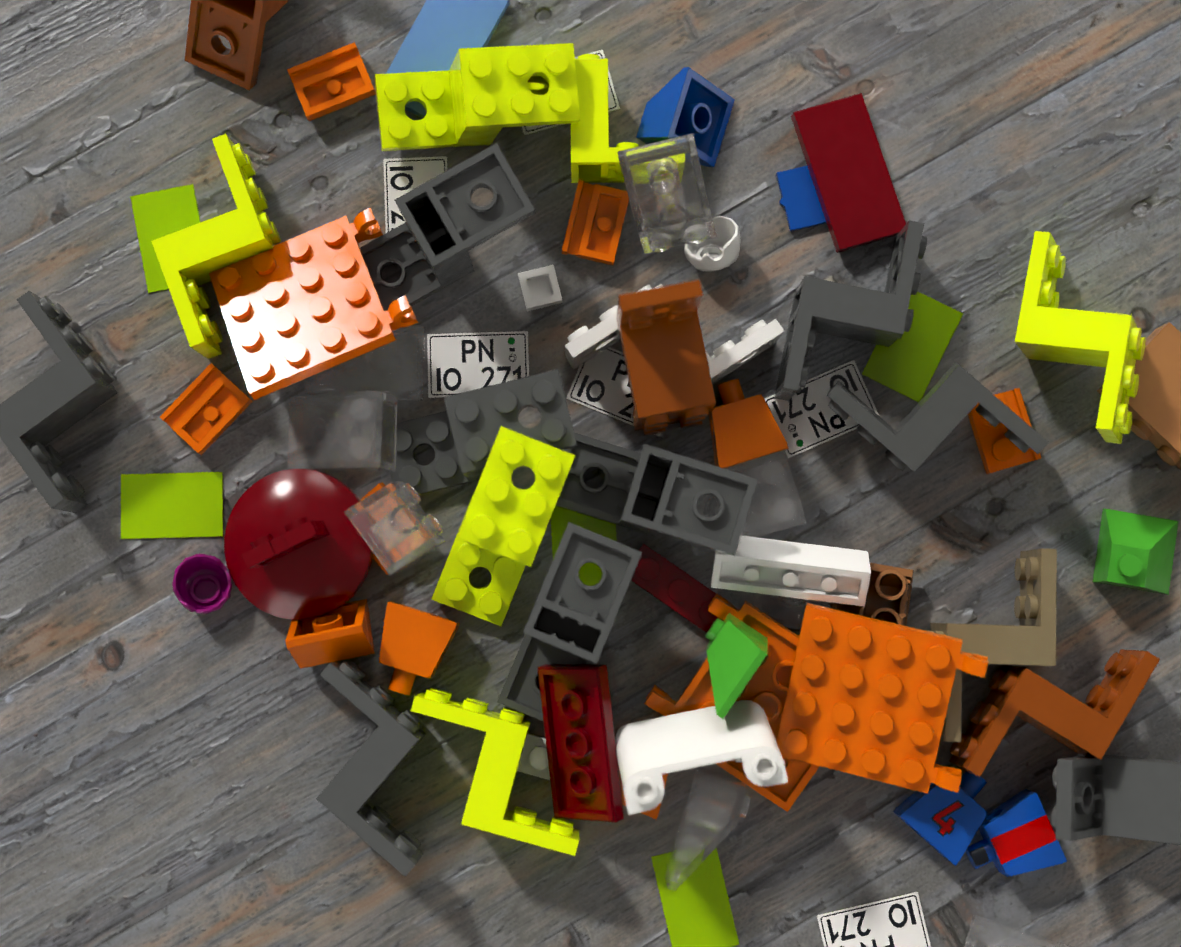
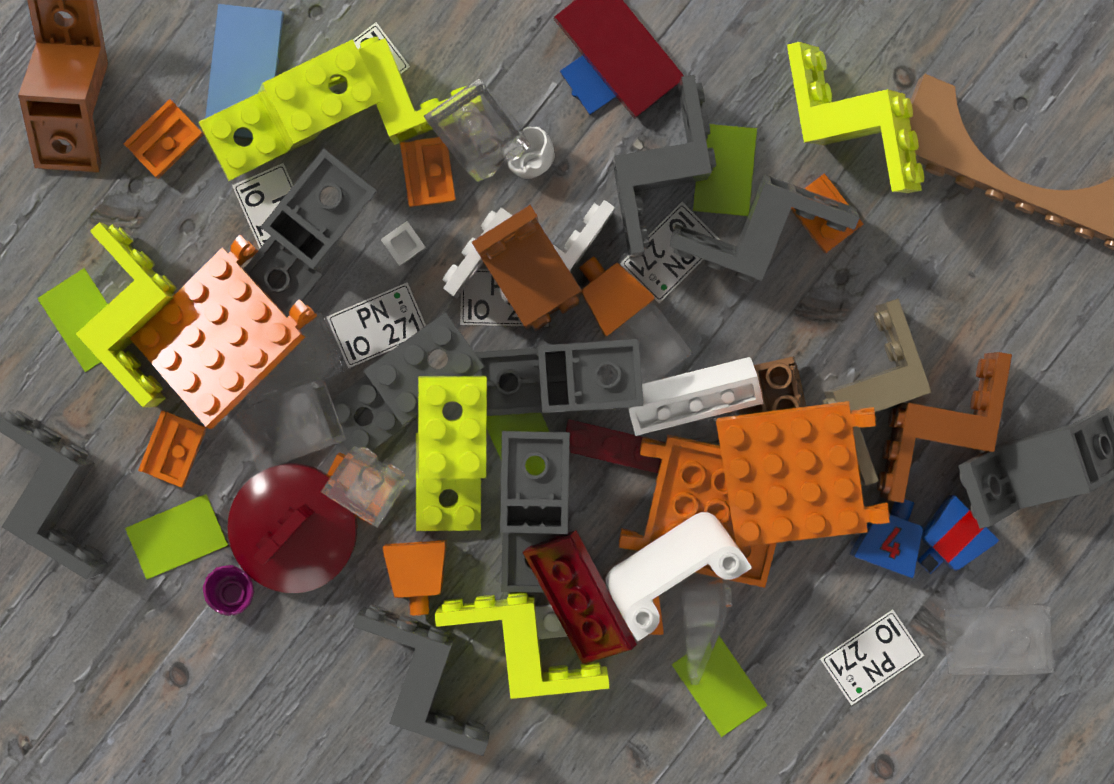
camera: 15 degrees left, 5 degrees up
(331, 637) = (349, 591): orange slope -> none
(687, 107) = (467, 53): blue slope -> none
(733, 659) = (674, 486): bright green slope -> none
(1135, 551) = (967, 269): bright green slope -> none

